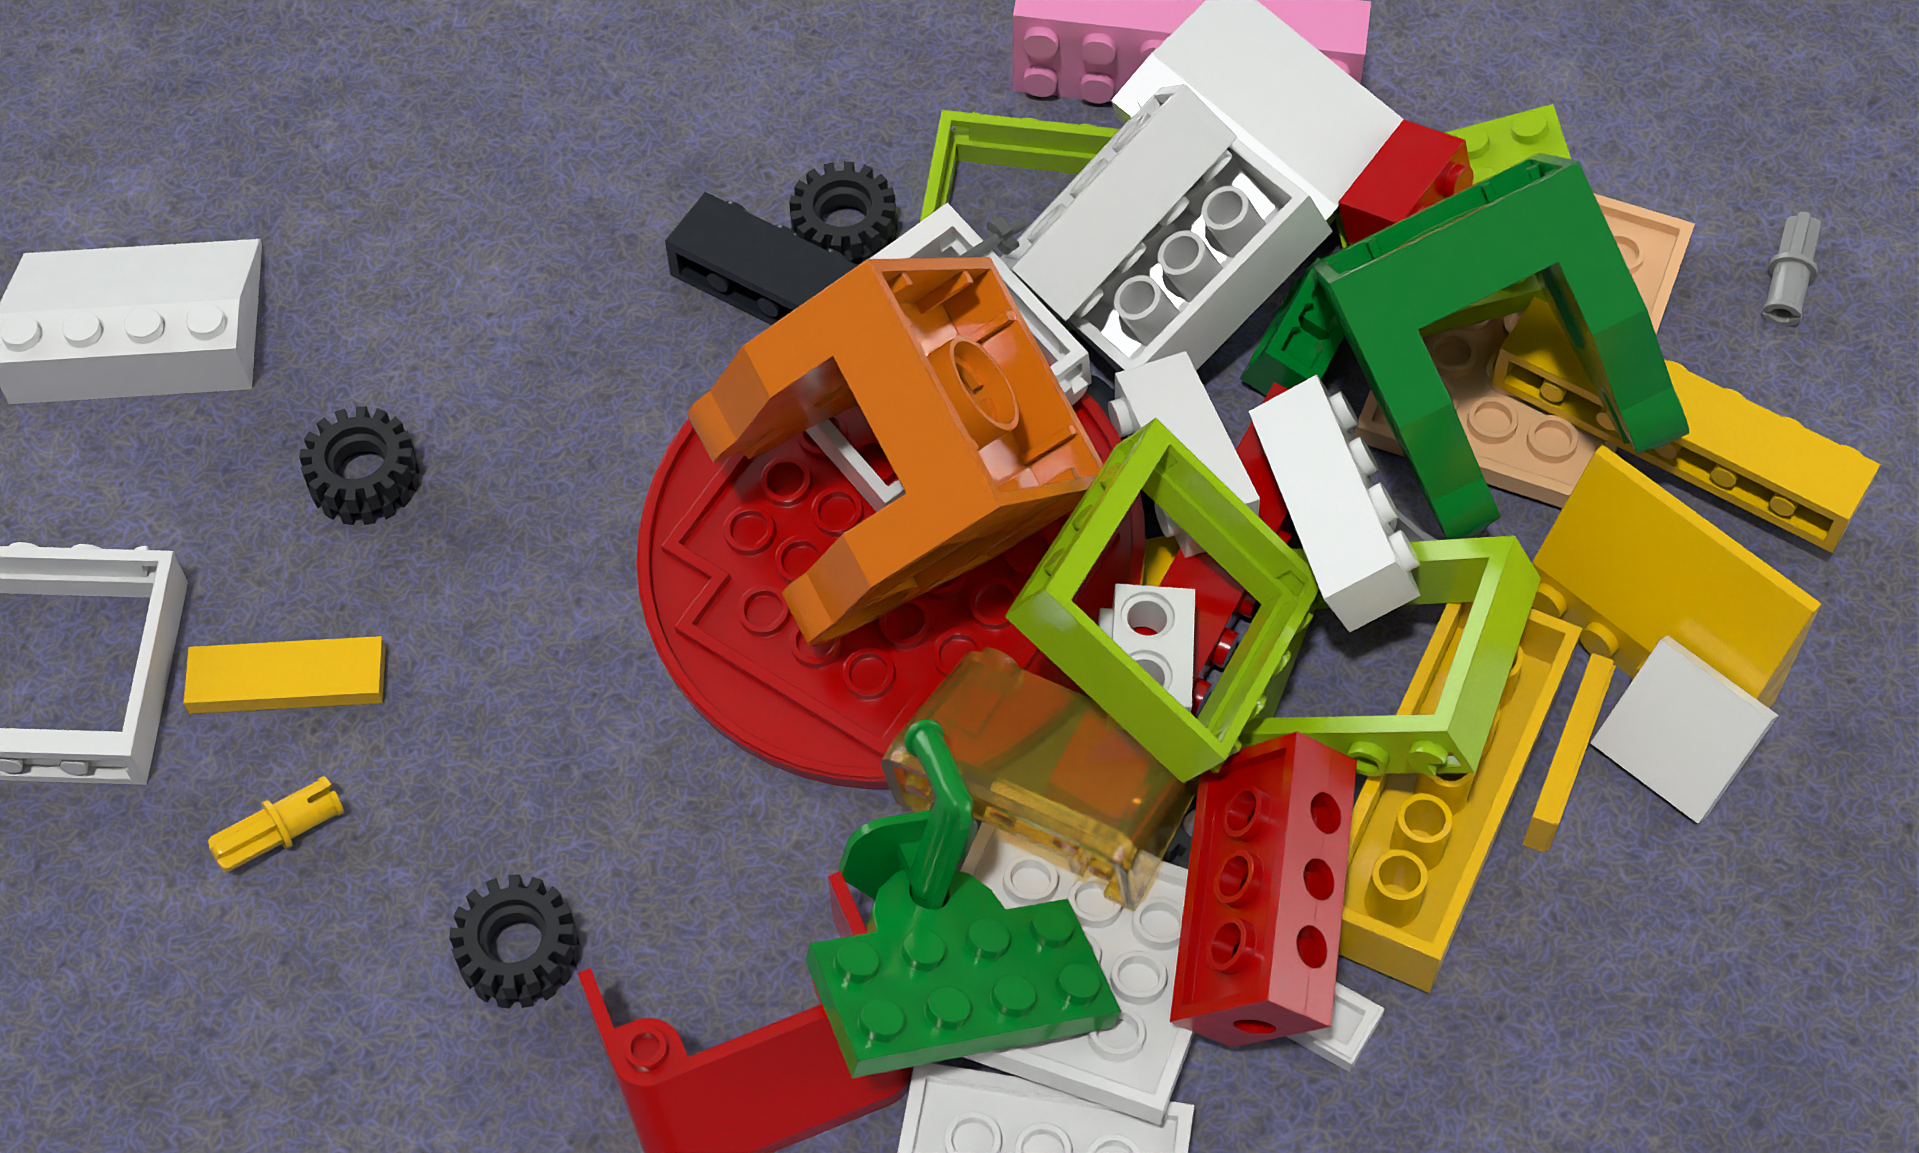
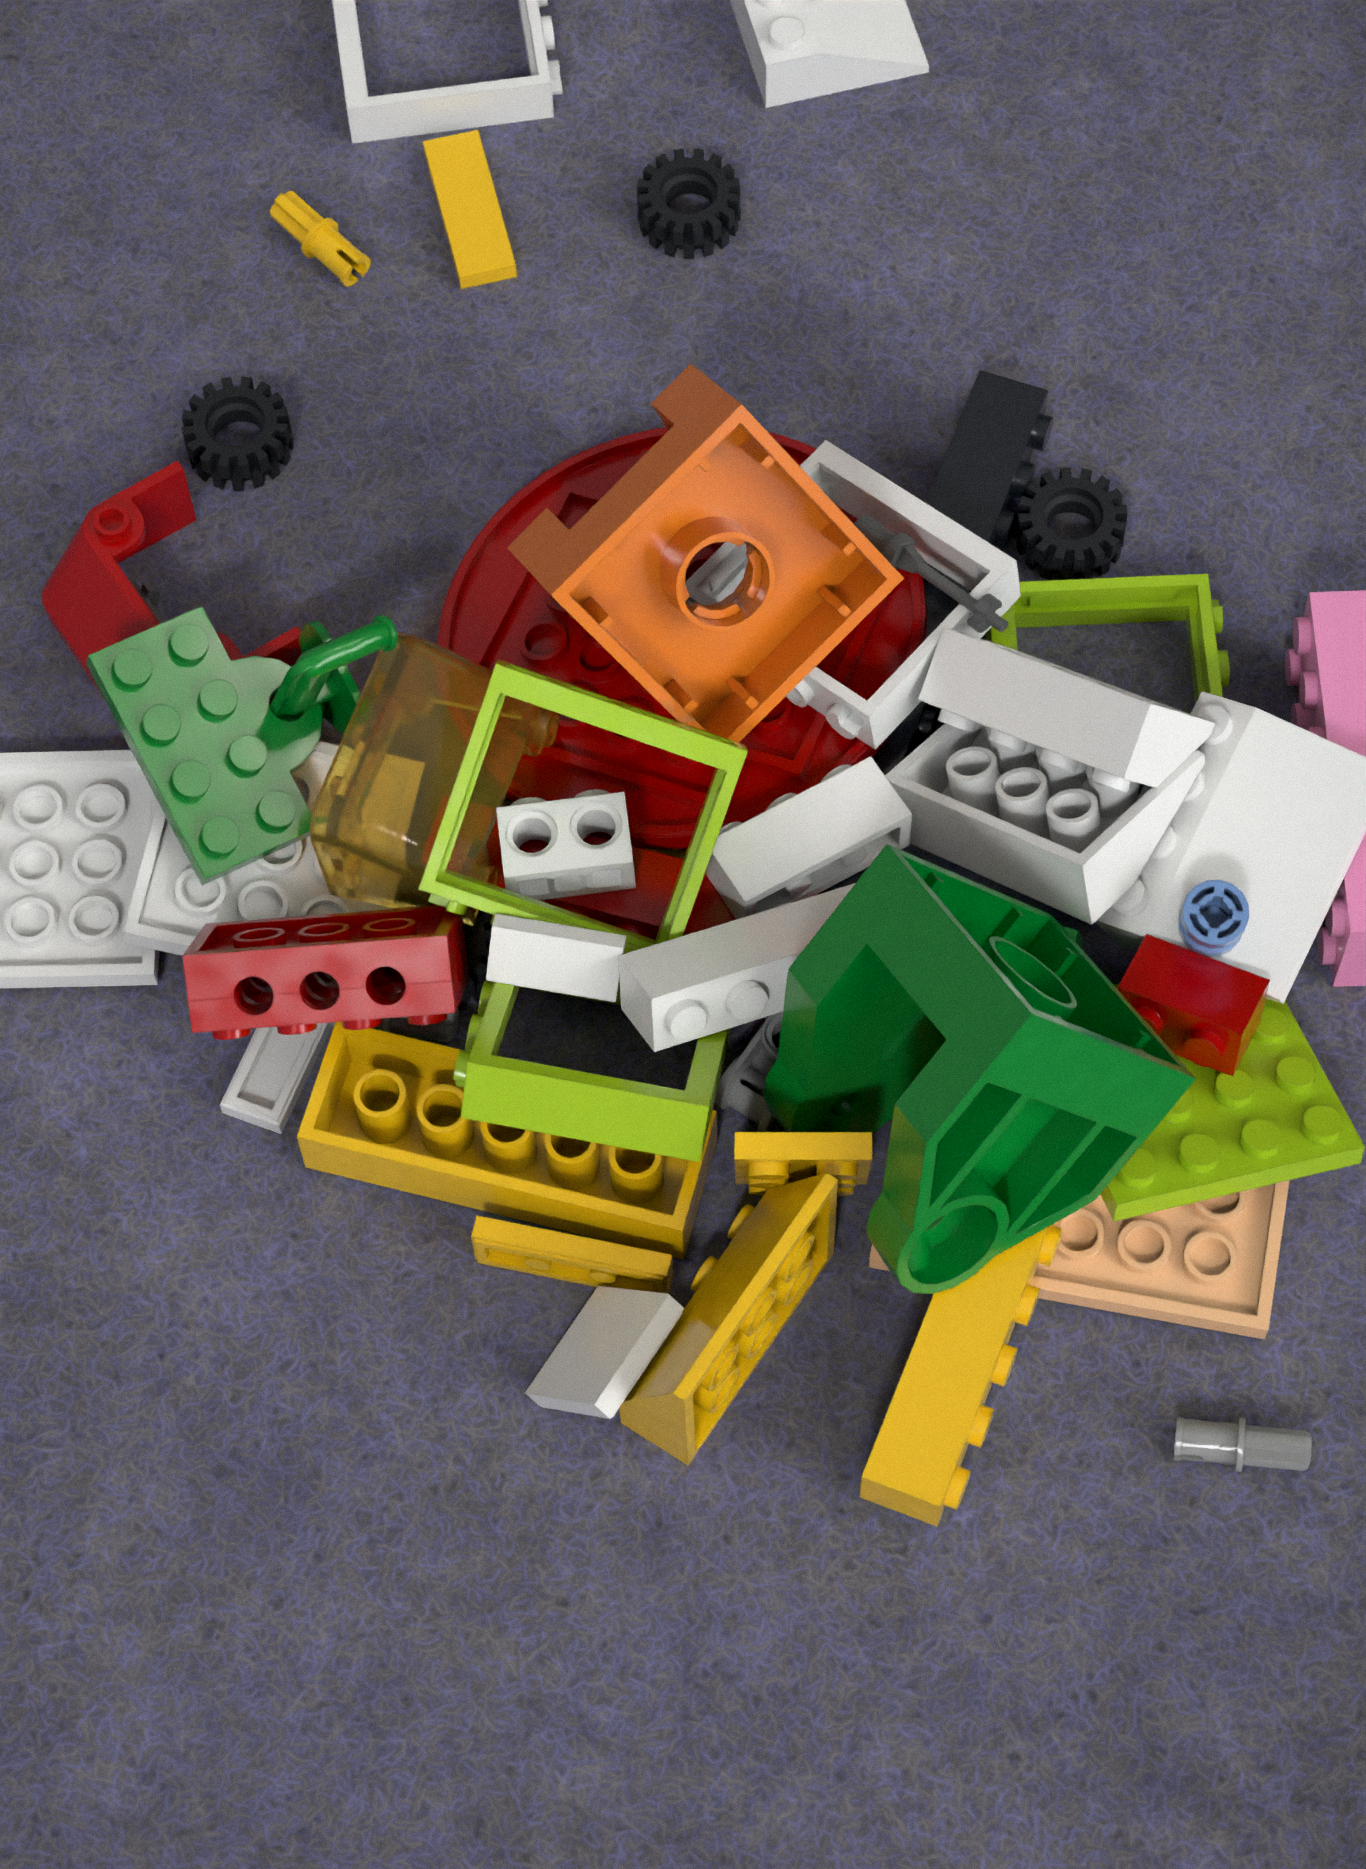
camera: 80 degrees right, 5 degrees up
(1301, 664) = (555, 957): none -> white tile
(1350, 135) = (1210, 930): none -> medium blue wheel
(1538, 489) = (785, 1157): none -> yellow plate

